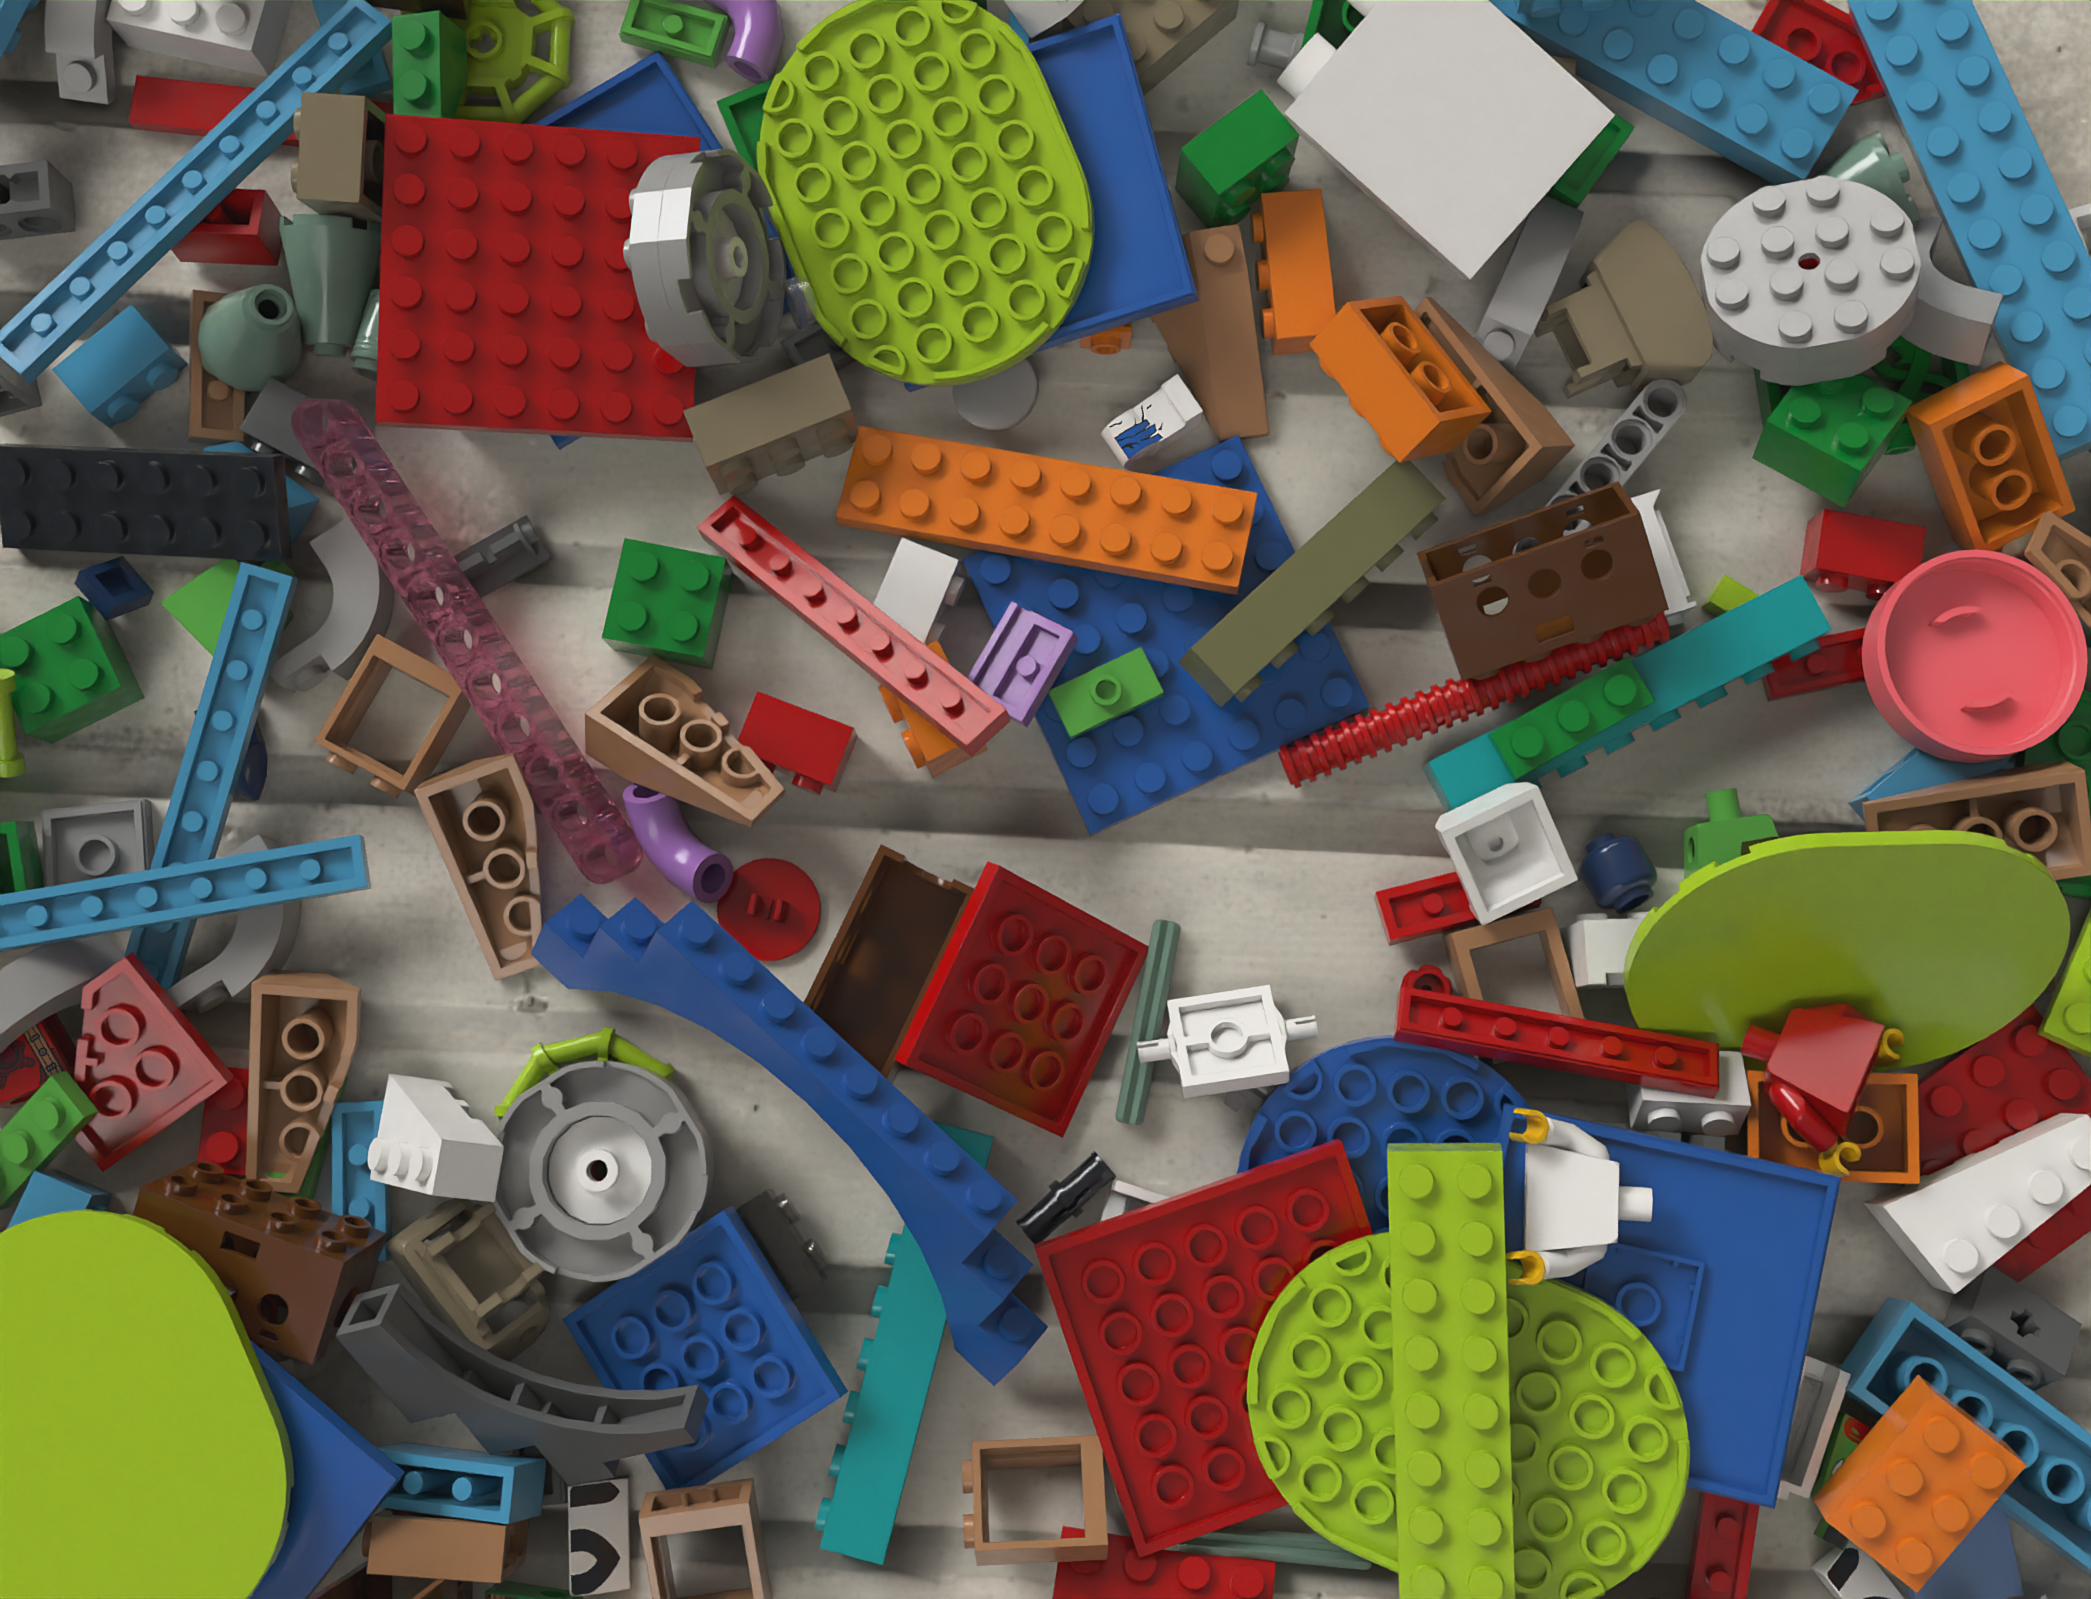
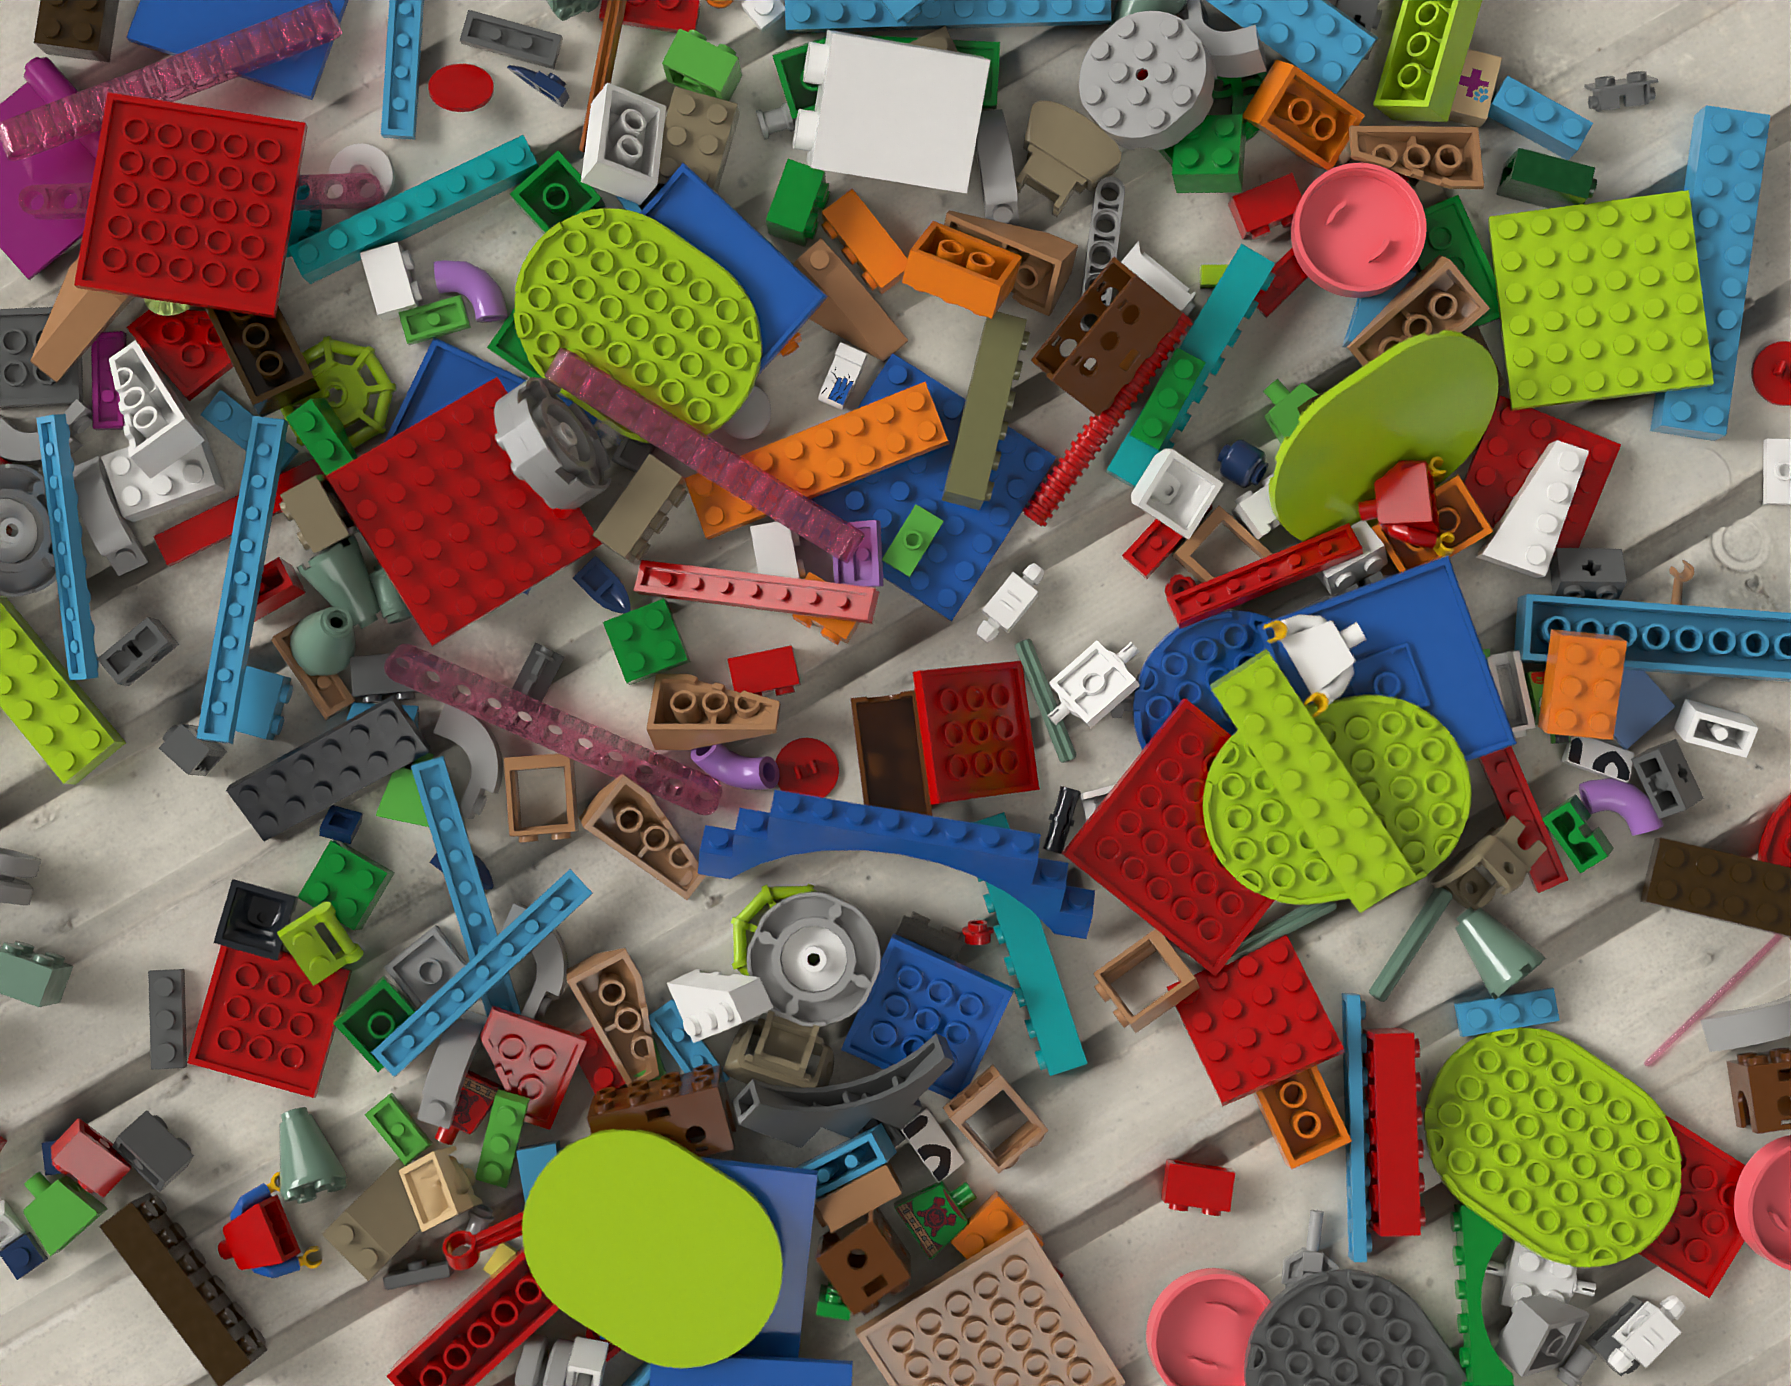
camera: 30 degrees left, 5 degrees up
(661, 496) = (603, 586): none -> dark blue plate
(852, 1280) = (977, 932): none -> red plate
(903, 407) = (704, 455): none -> clear pink beam
(1184, 859) = (1010, 602): none -> white piece

